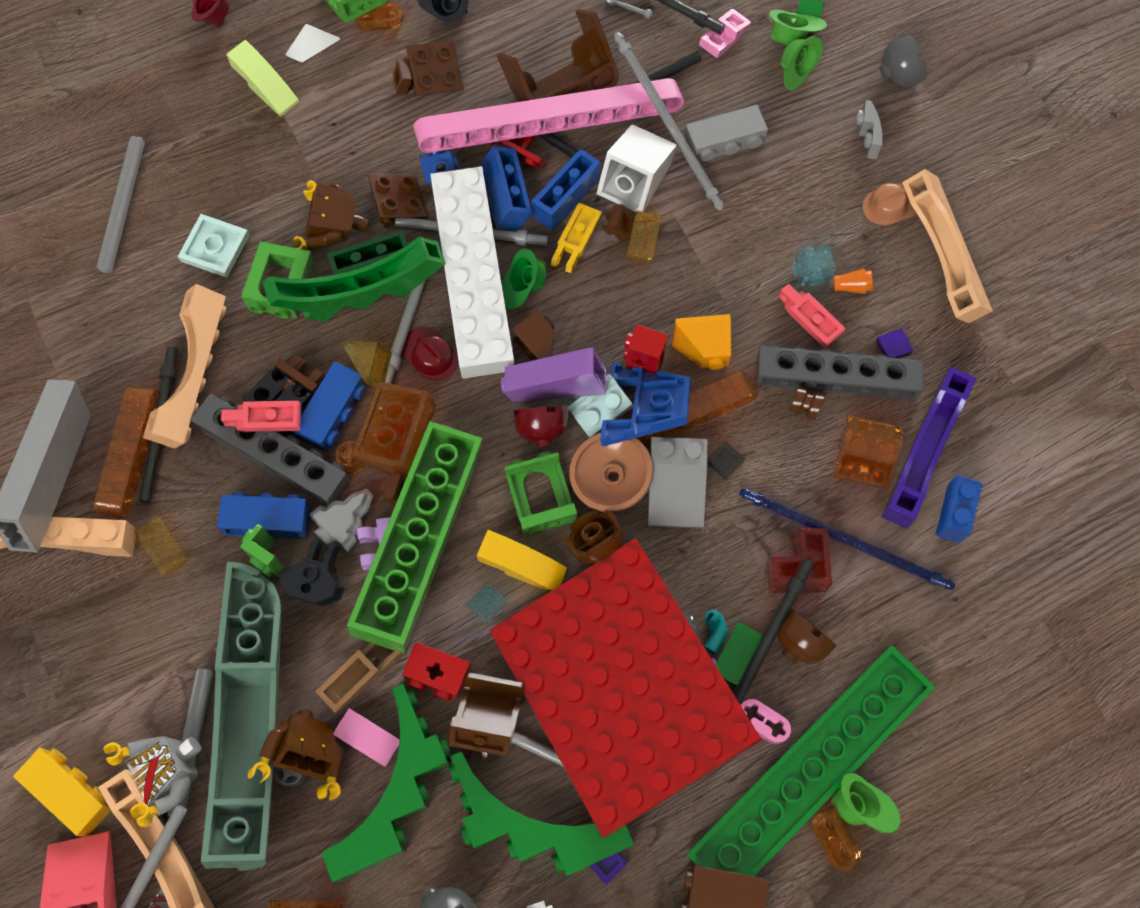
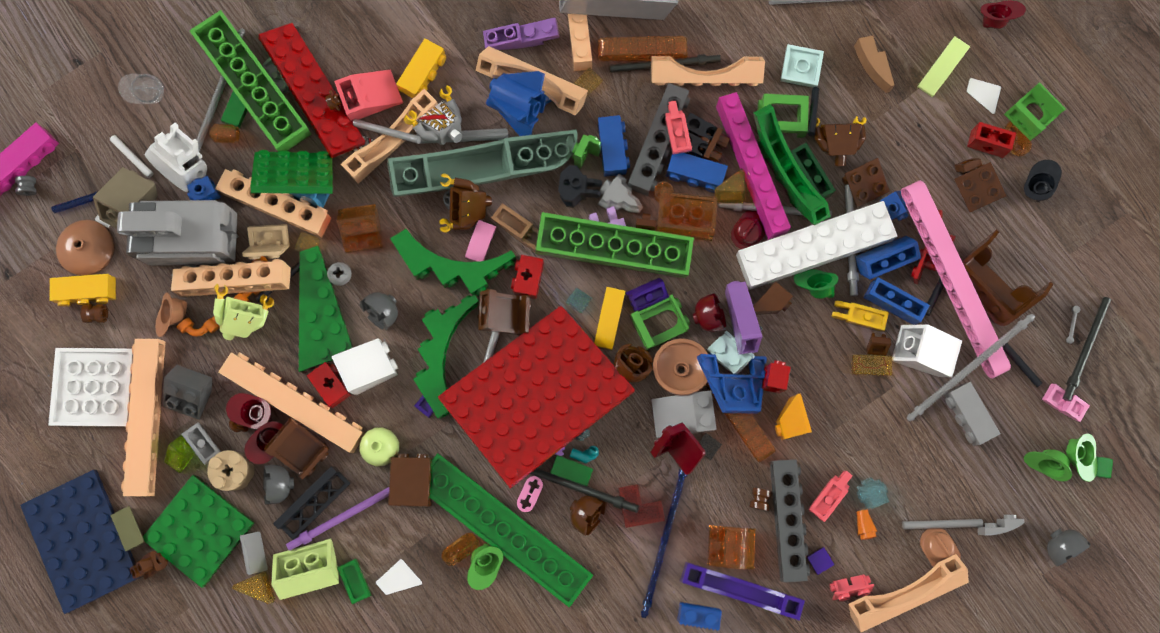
camera: 80 degrees right, 10 degrees up
(55, 624) = (522, 36): none -> medium lavender slope
(95, 658) = (563, 93): none -> light nougat arch
(157, 638) = (519, 99): none -> blue brick
(235, 156) = (874, 63): none -> medium nougat slope
(283, 241) = (813, 111): none -> black bar
(330, 330) = (752, 162): none -> dark pink brick
(375, 42) = (991, 139): none -> red brick
(496, 505) = (647, 294): none -> dark purple slope
(725, 490) = (681, 446): none -> dark red bracket
(860, 190) = (942, 524): none -> light grey bar
(931, 303) = (844, 591): none -> coral hinge

